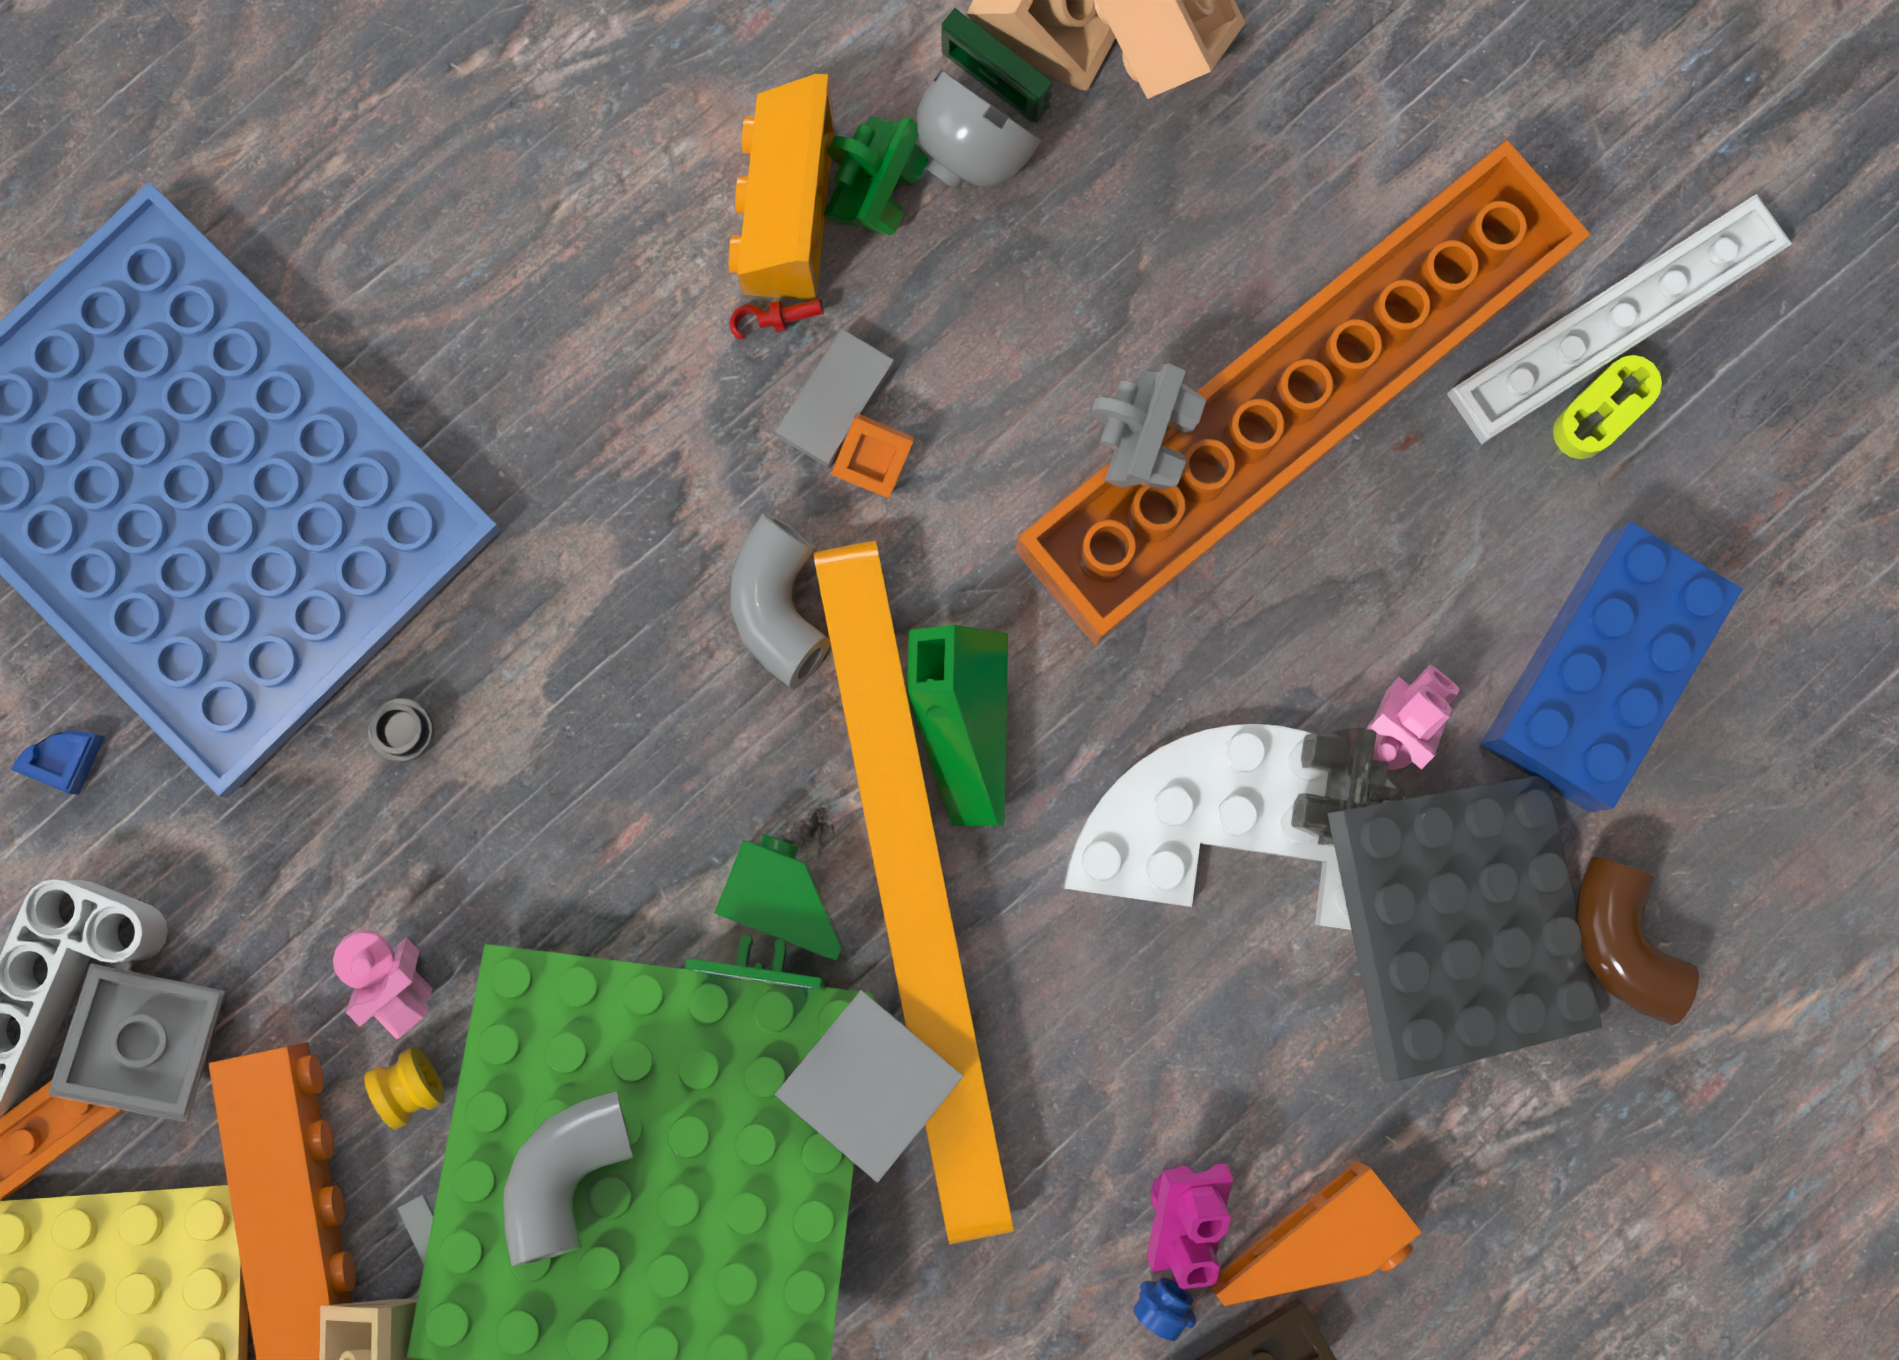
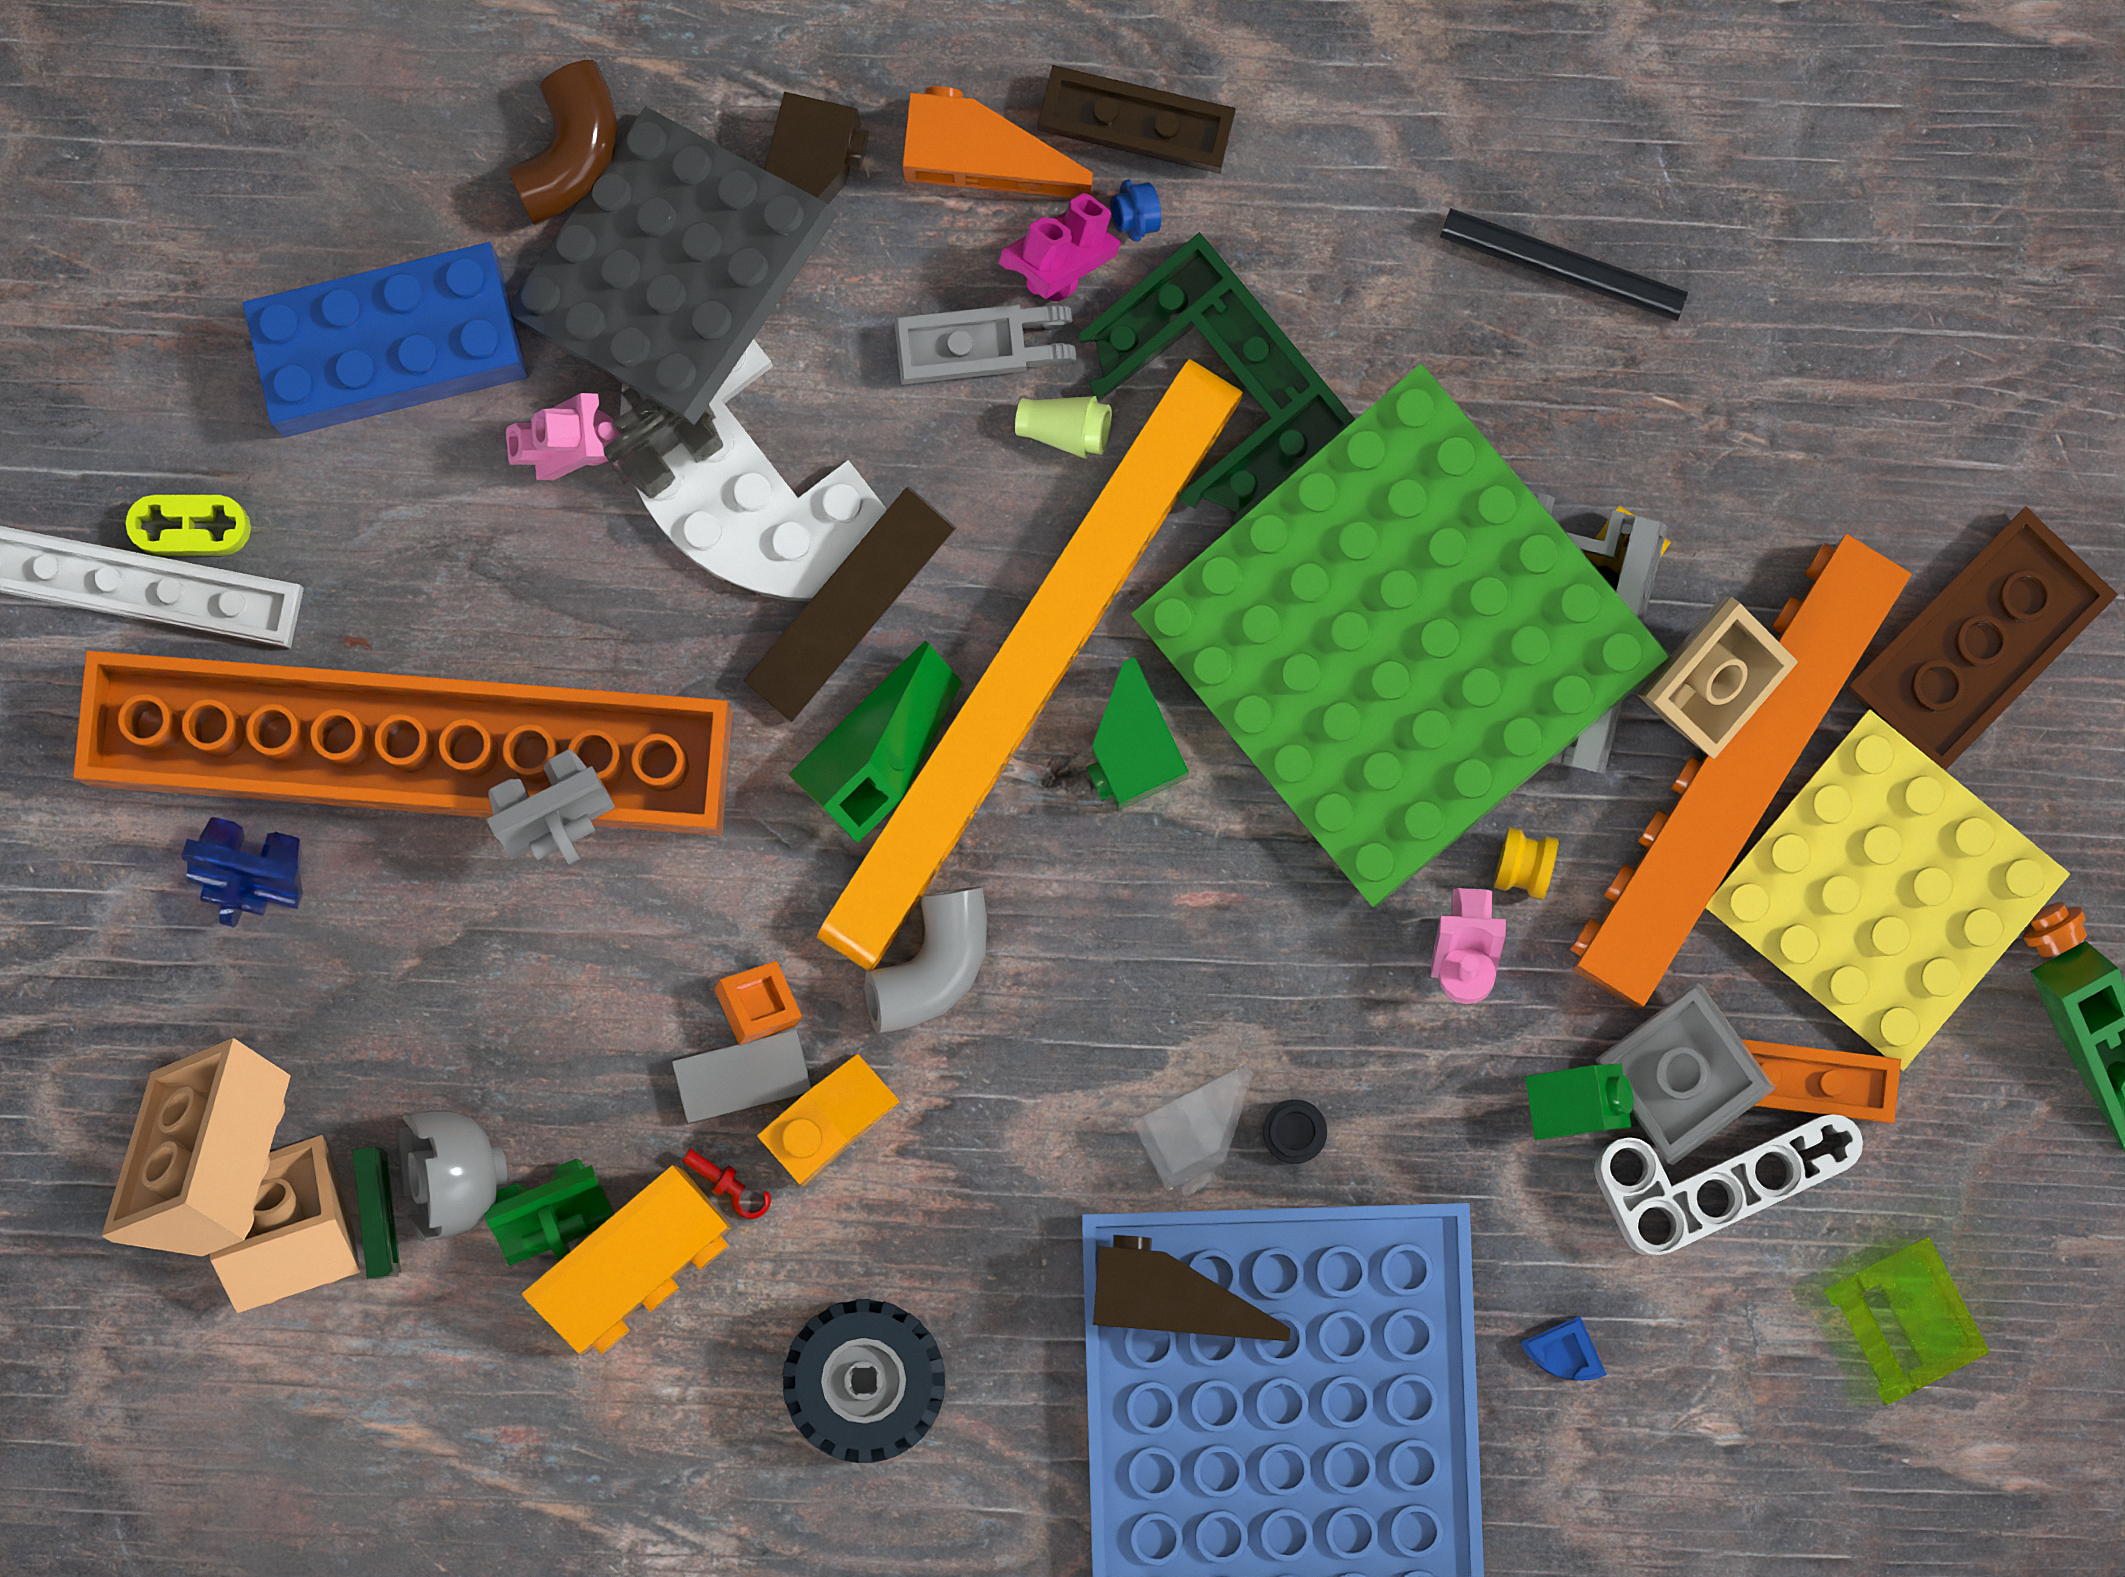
camera: 130 degrees left, 0 degrees up
(198, 947) = (1579, 1101): none -> green brick
(370, 517) = (1163, 1294): none -> dark brown slope
(470, 661) = (1194, 1132): none -> clear slope
(541, 265) = (863, 1381): none -> black wheel
(547, 1172) = (1454, 690): light grey cylinder -> none
(742, 419) = (828, 1119): none -> light orange slope
(758, 974) = (1198, 698): green piece -> none
(869, 1086) = (1192, 547): light grey tile -> none
(1049, 1295) = (1203, 292): none -> dark green wedge
(1058, 1090) = (1068, 424): none -> yellowish green cone
(1085, 802) = (850, 604): none -> dark brown tile
(1183, 1087) = (977, 343): none -> light grey hinge
(1347, 196) = (240, 879): none -> clear blue hips
(1449, 1120) = (816, 145): none -> dark brown slope

